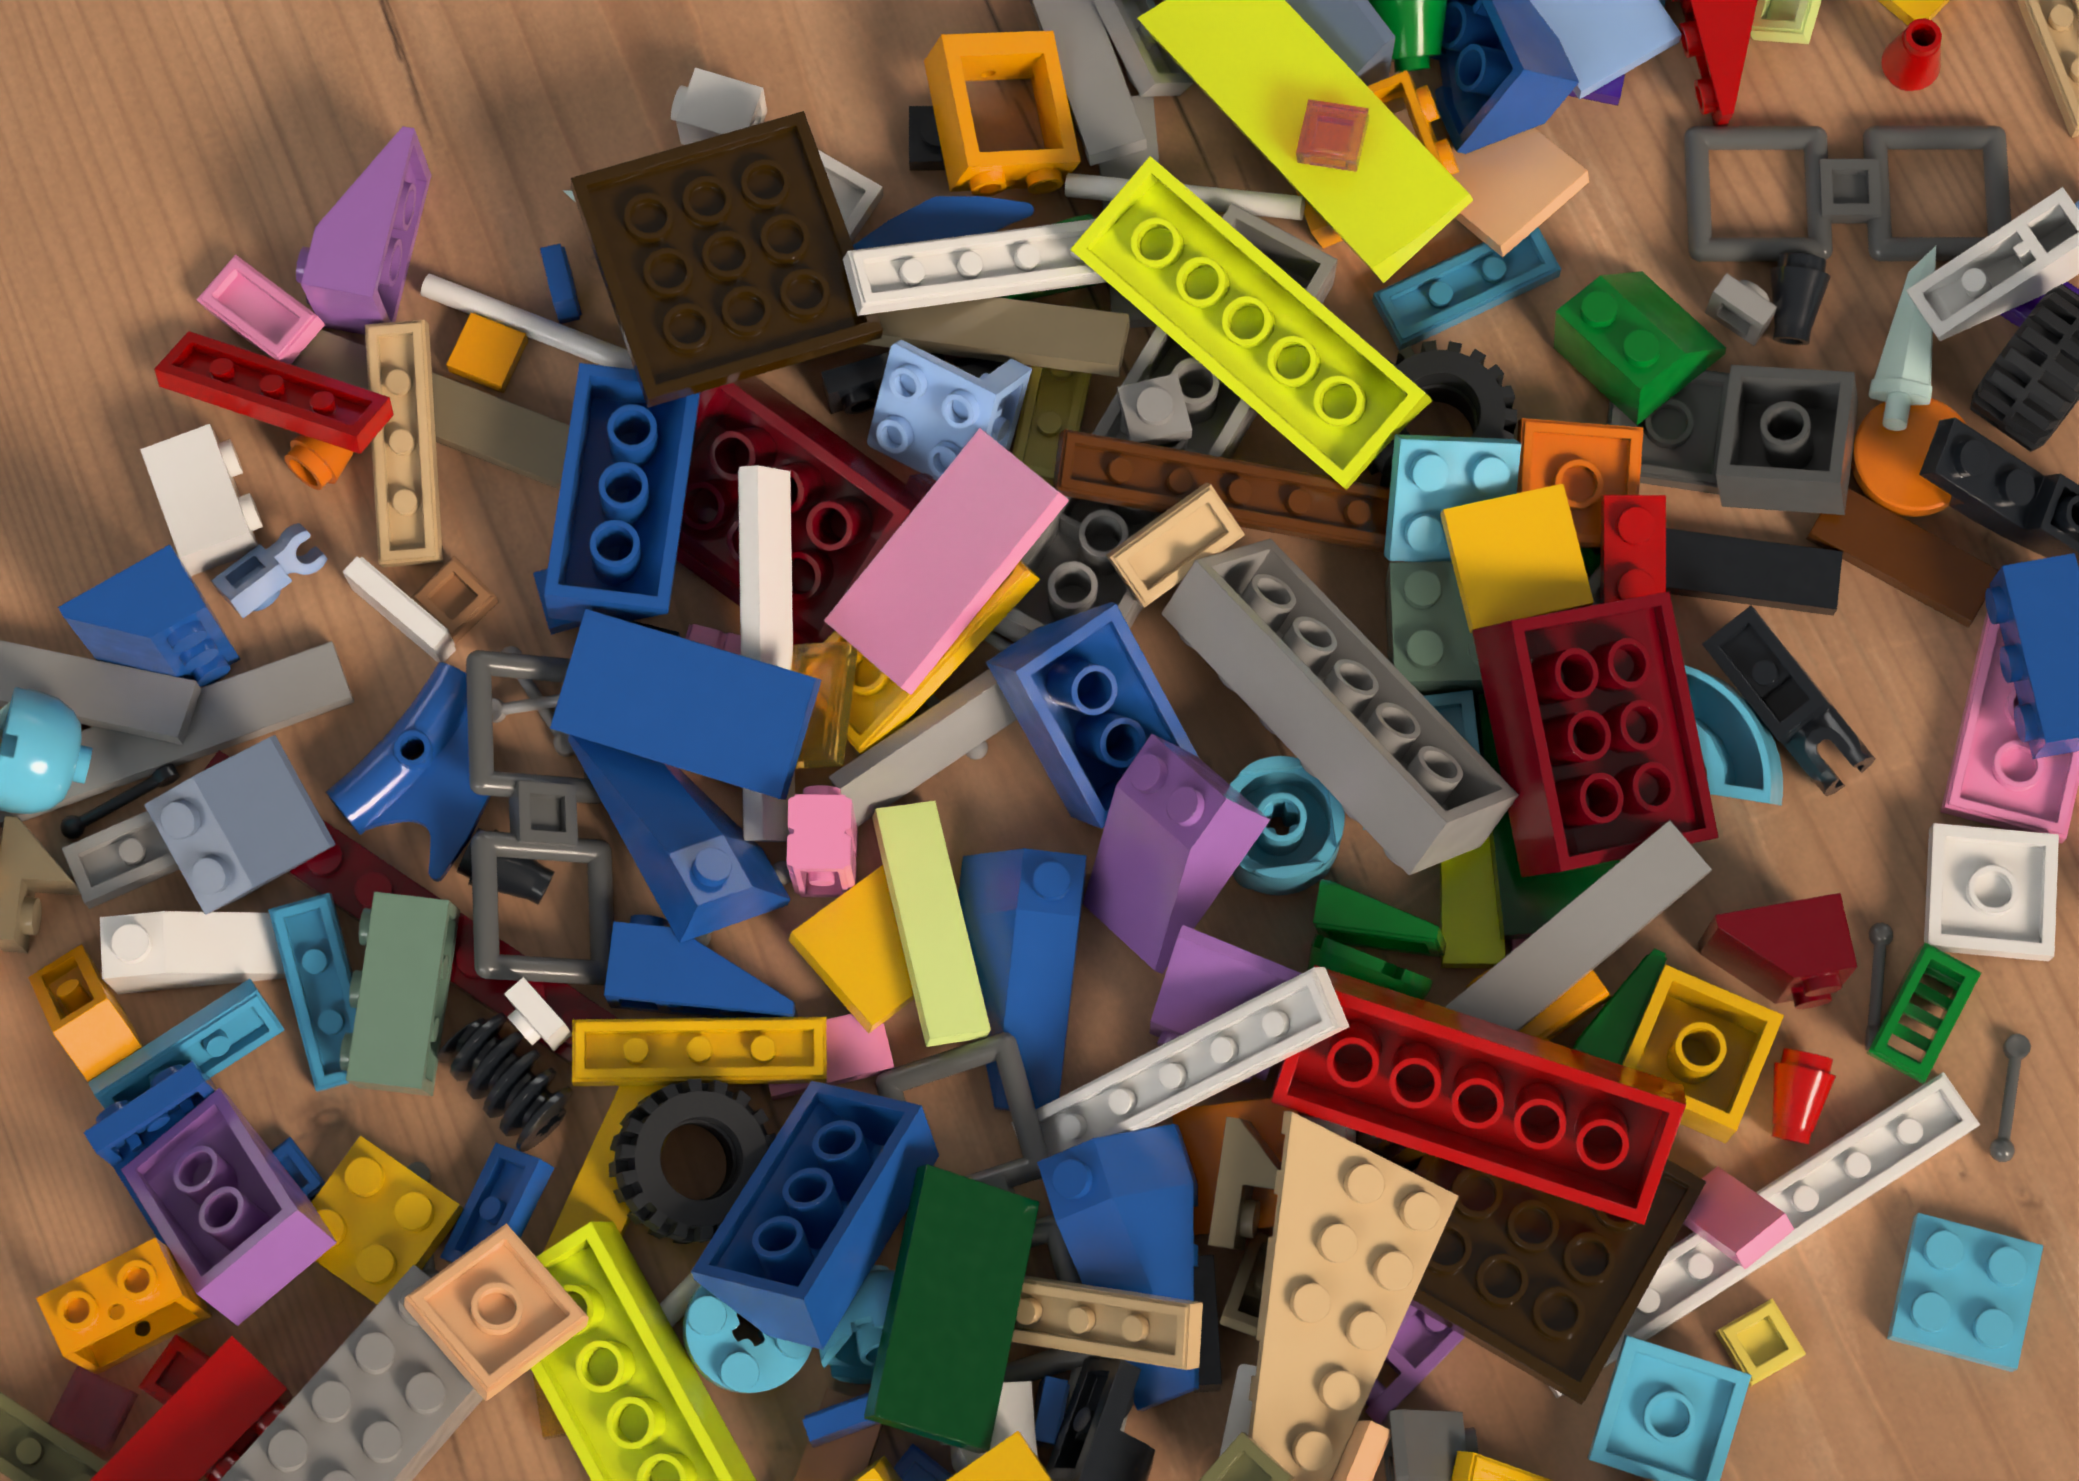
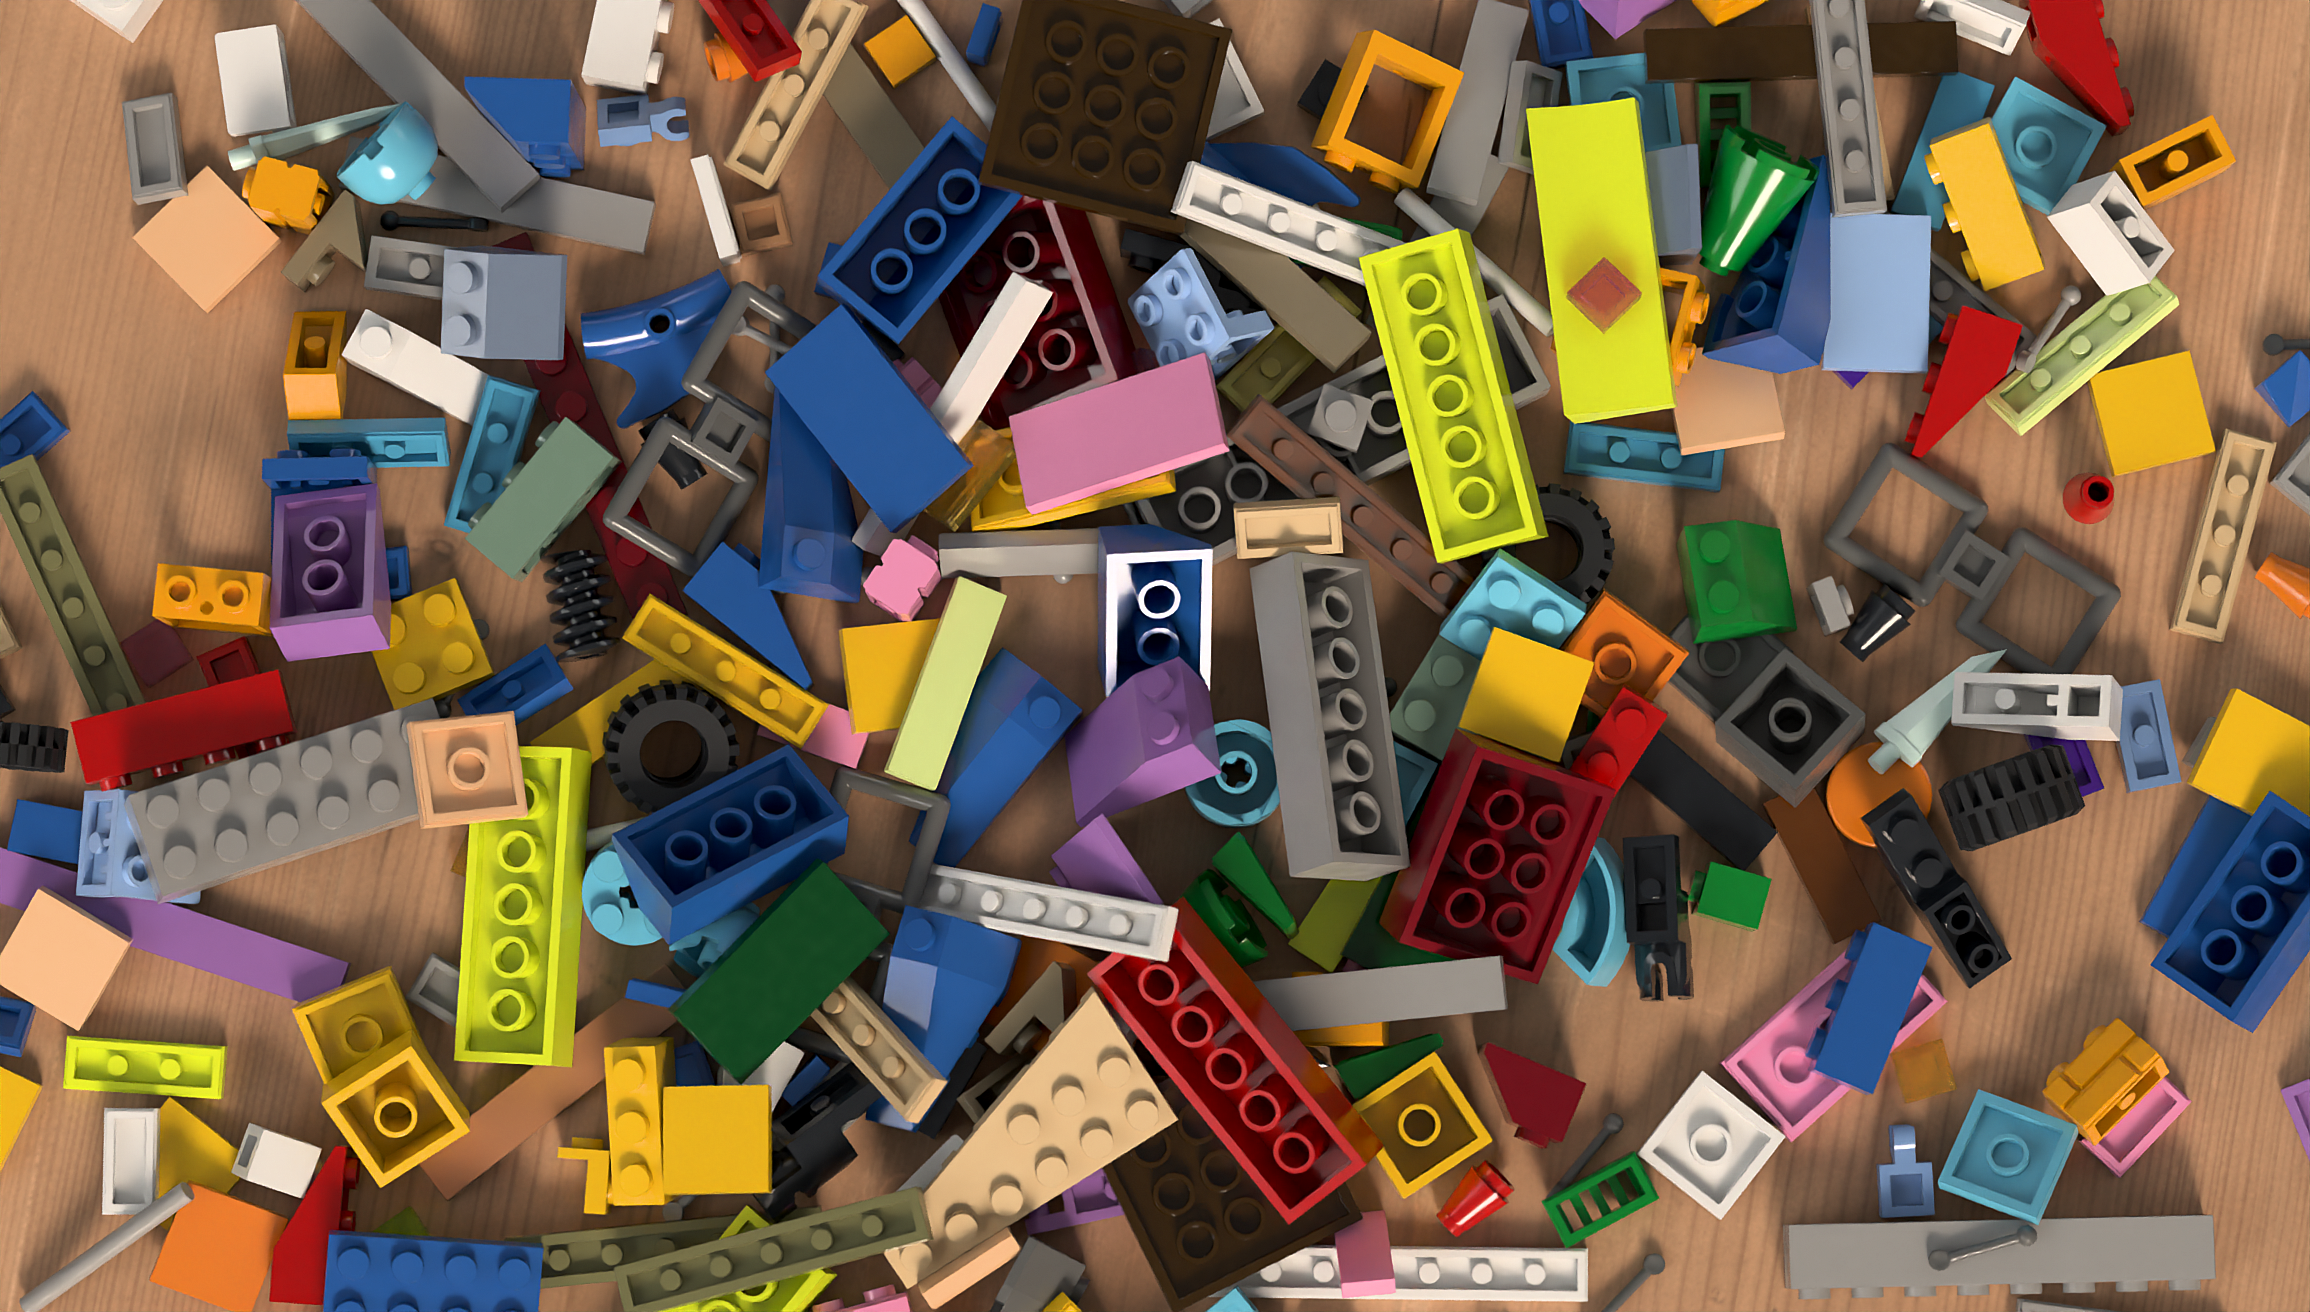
camera: 30 degrees right, 10 degrees up
(535, 1017) = (624, 575): white plate -> none
(1841, 639) = (1729, 895): none -> green brick

